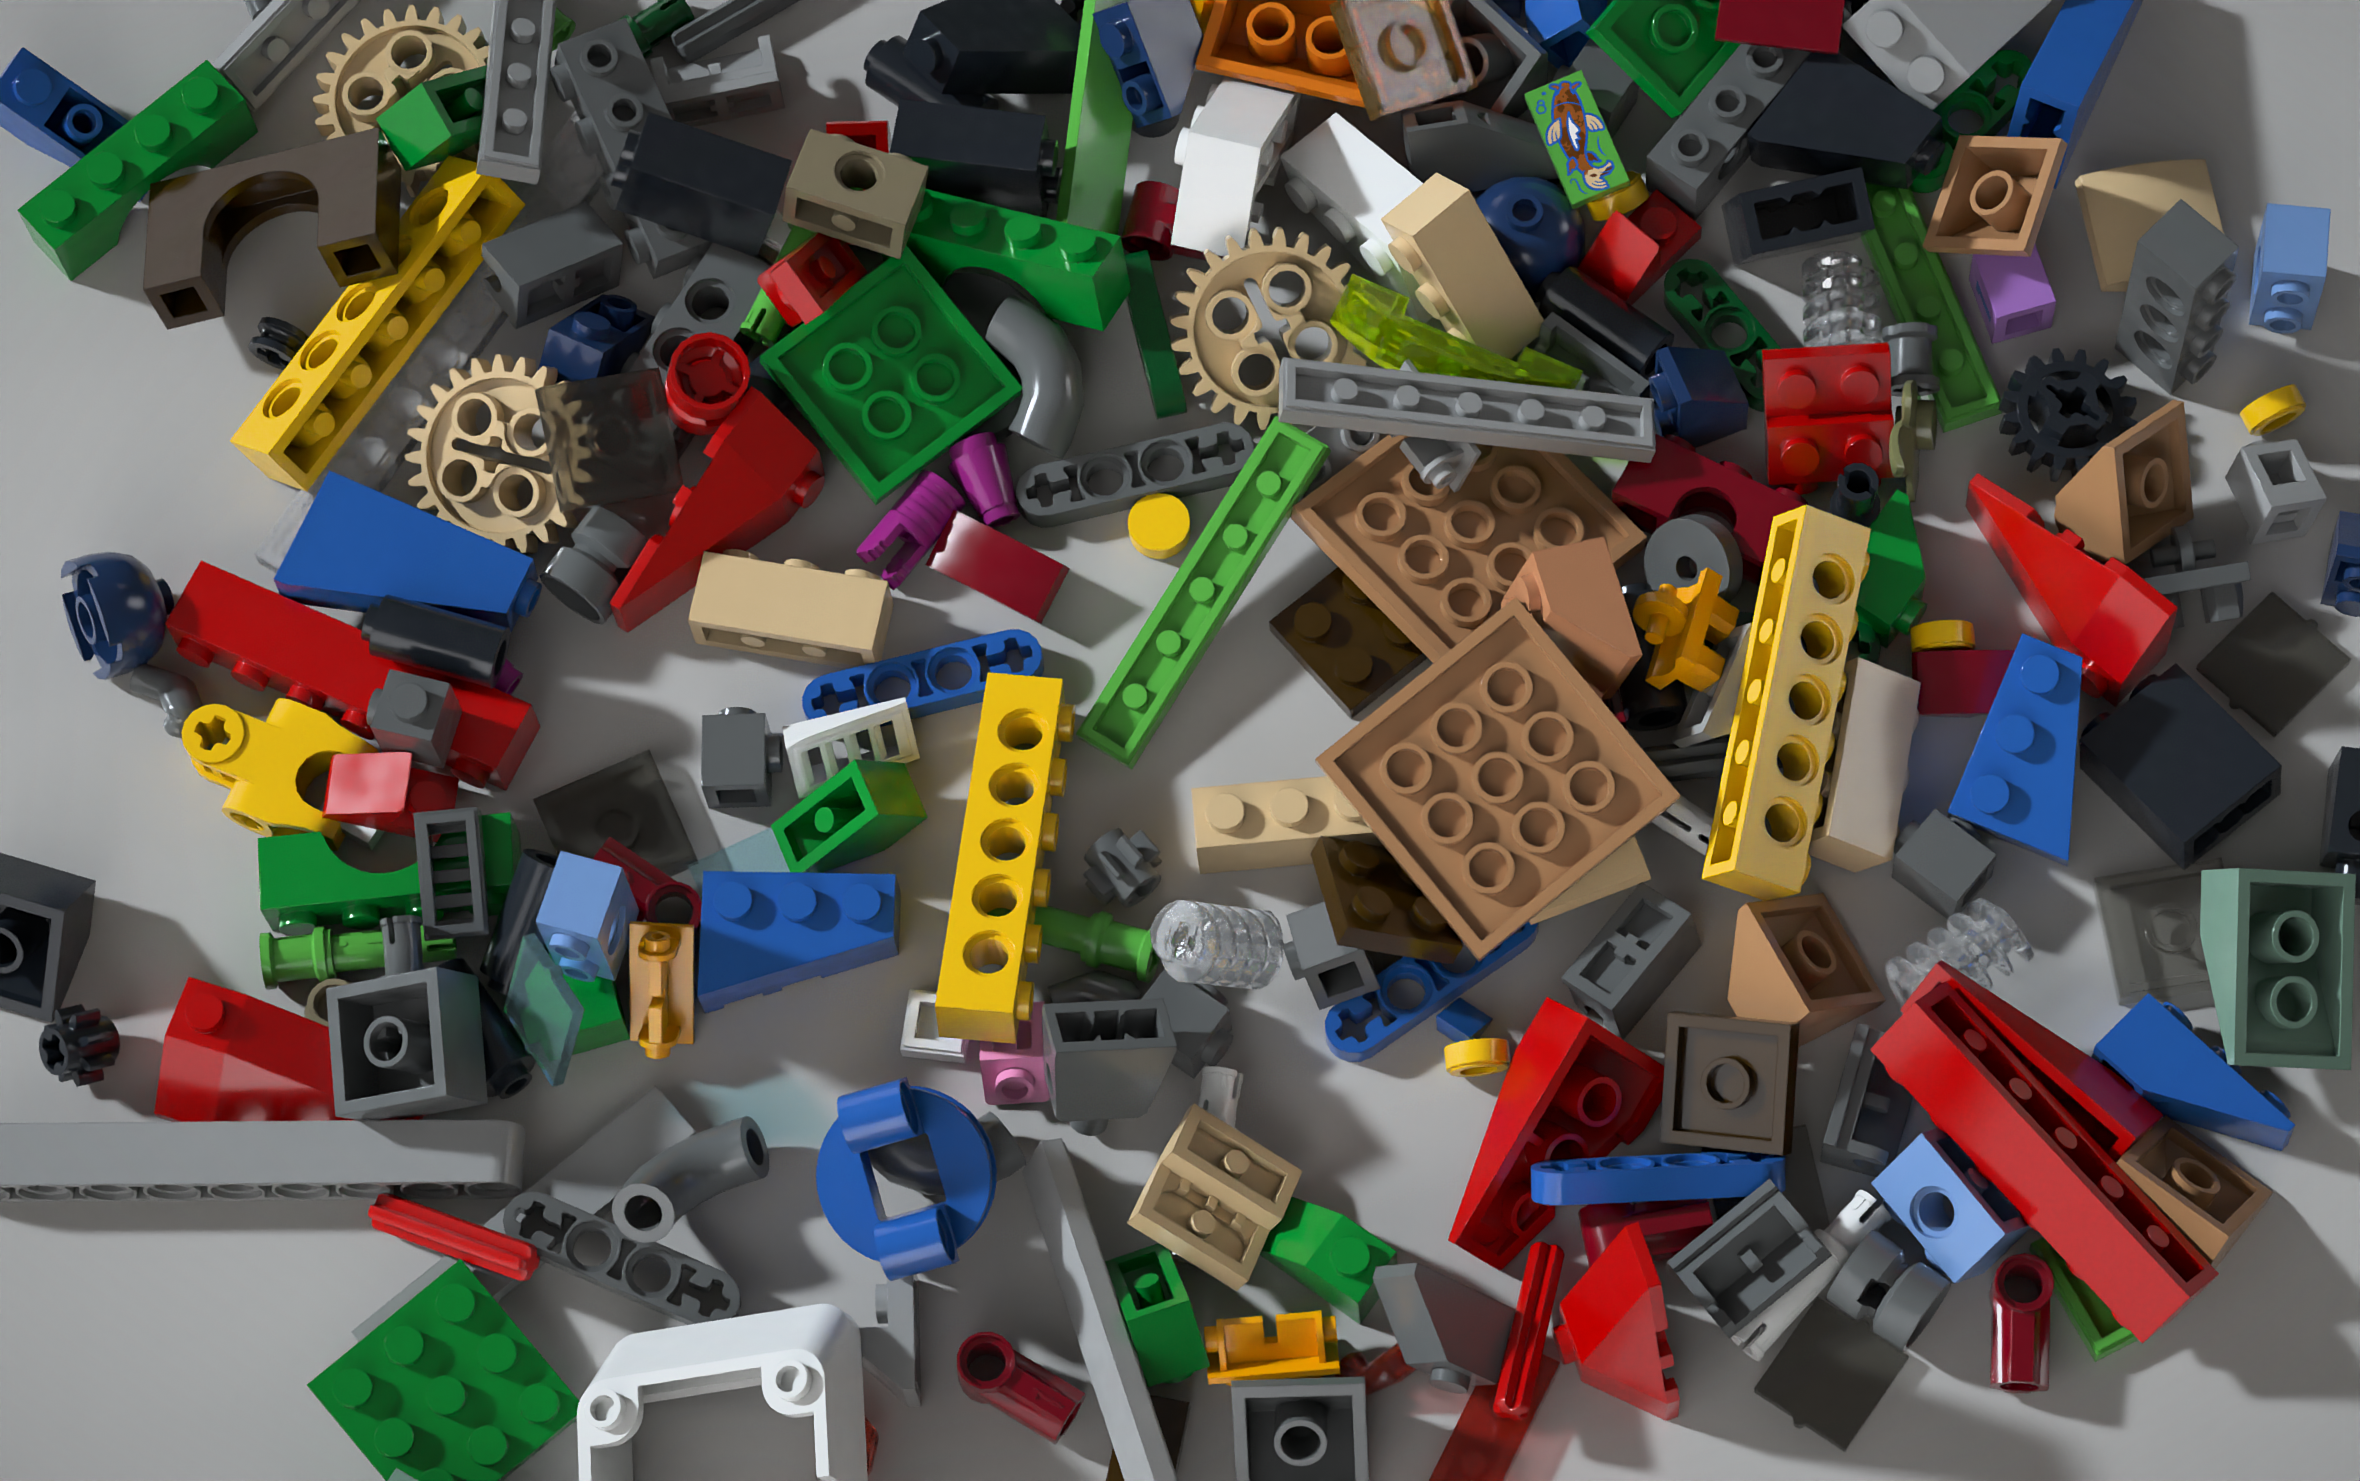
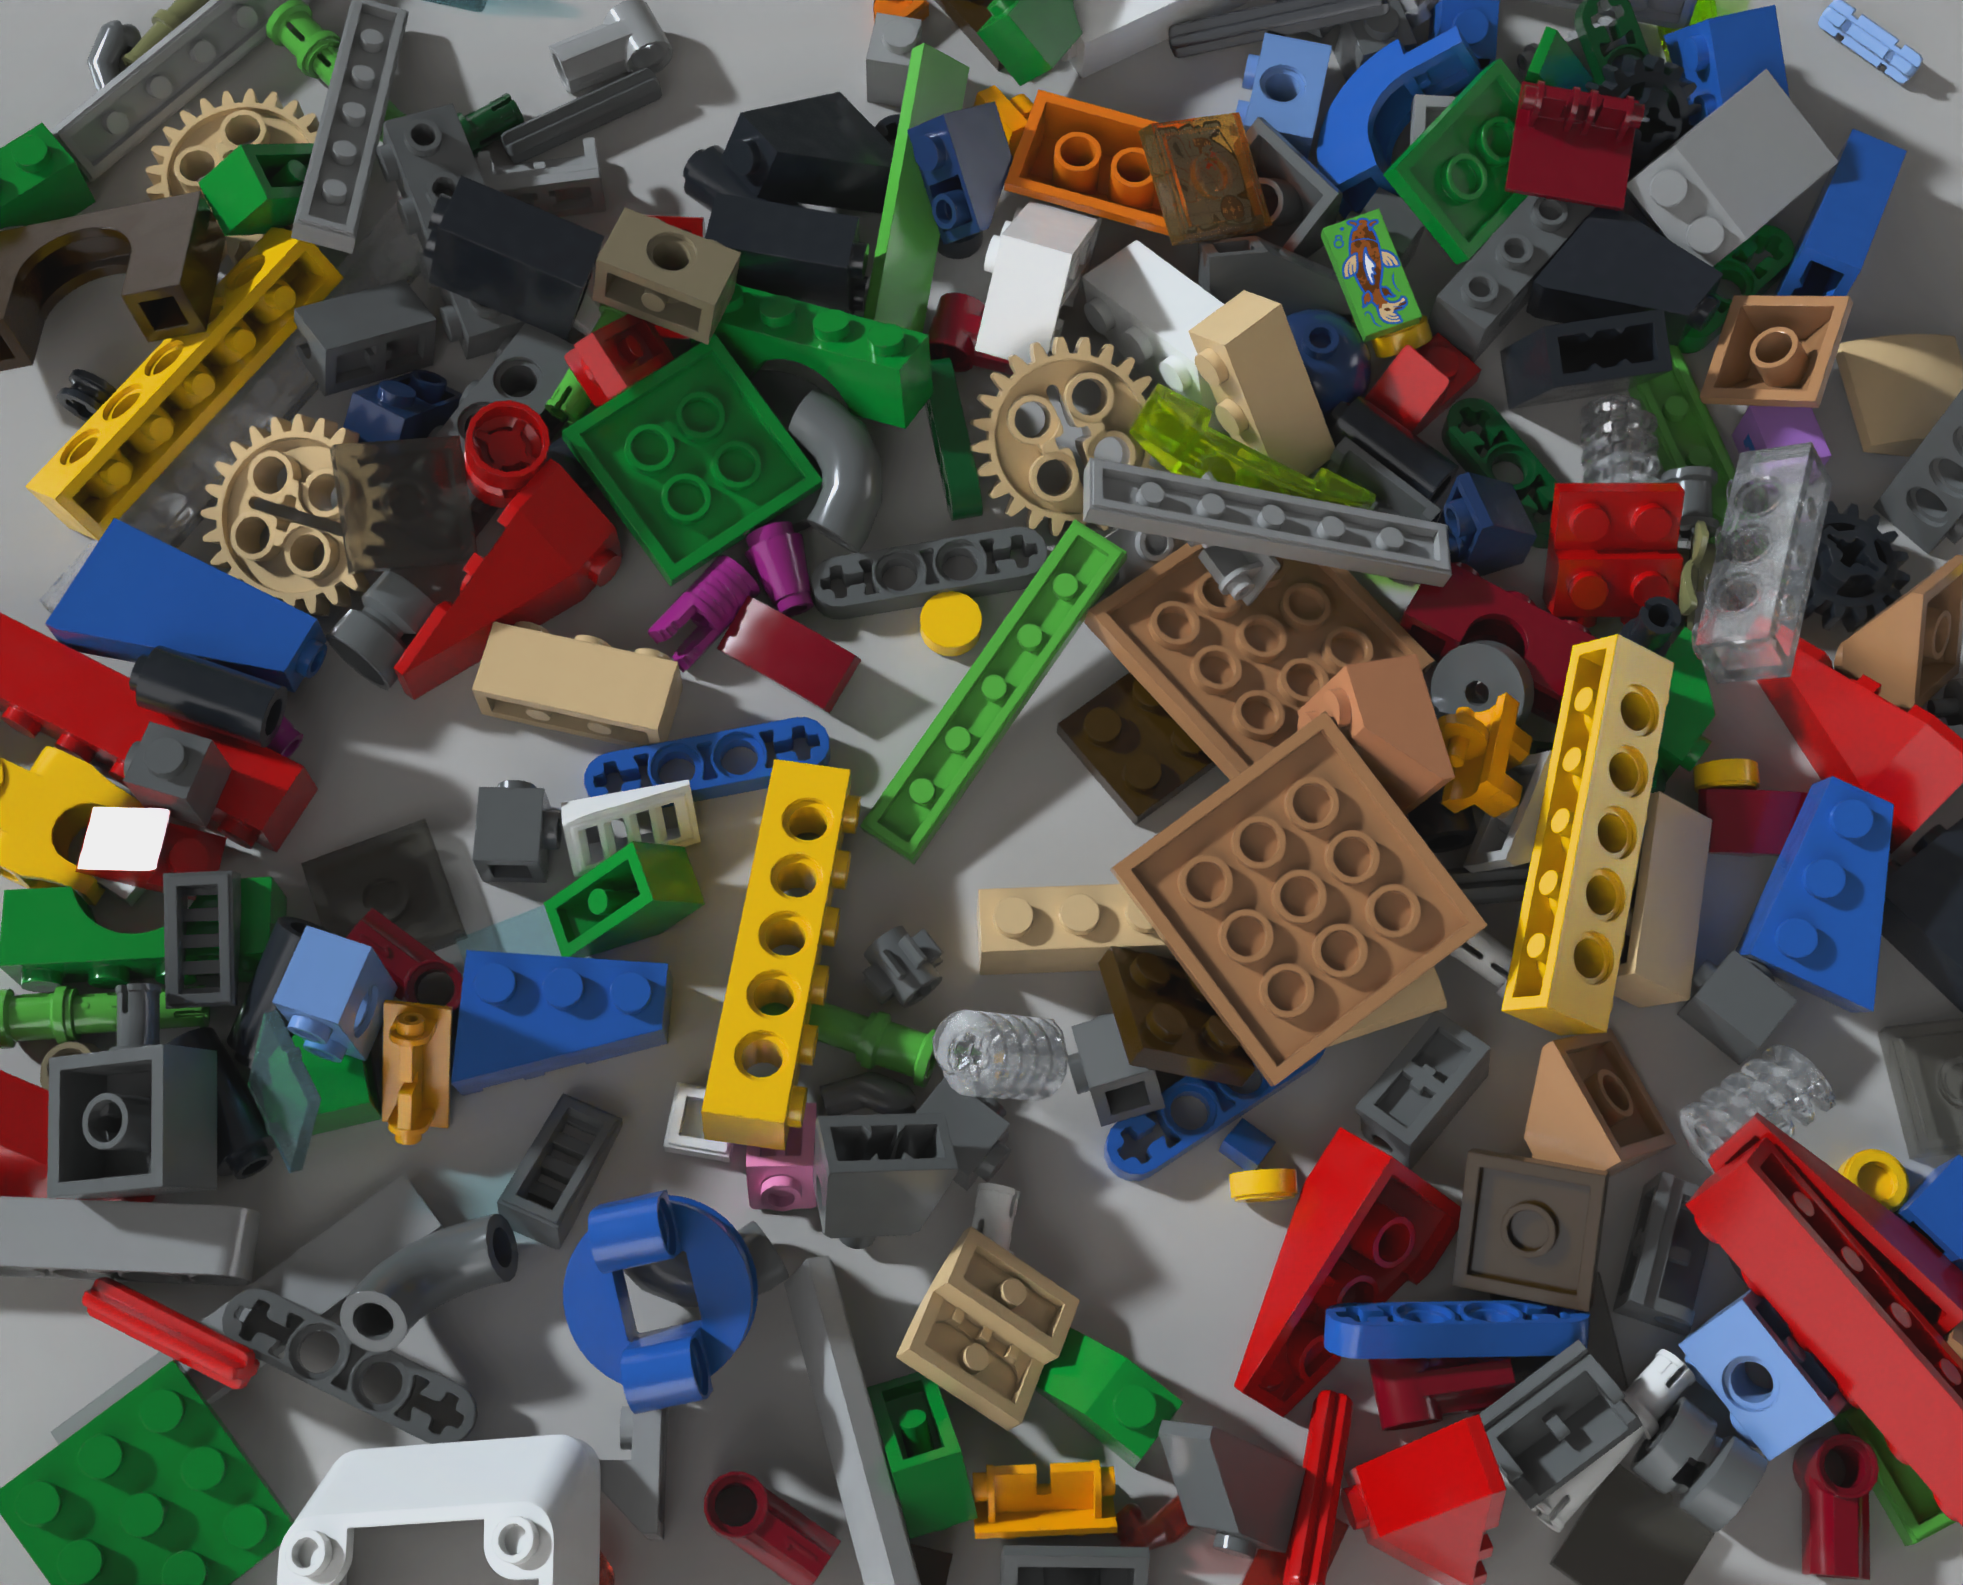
camera: 10 degrees left, 0 degrees up
(787, 1114) = (554, 1225): none -> dark grey slope
(1975, 419) = (1763, 564): none -> clear brick
(2079, 1022) = (1878, 1176): none -> yellow tile

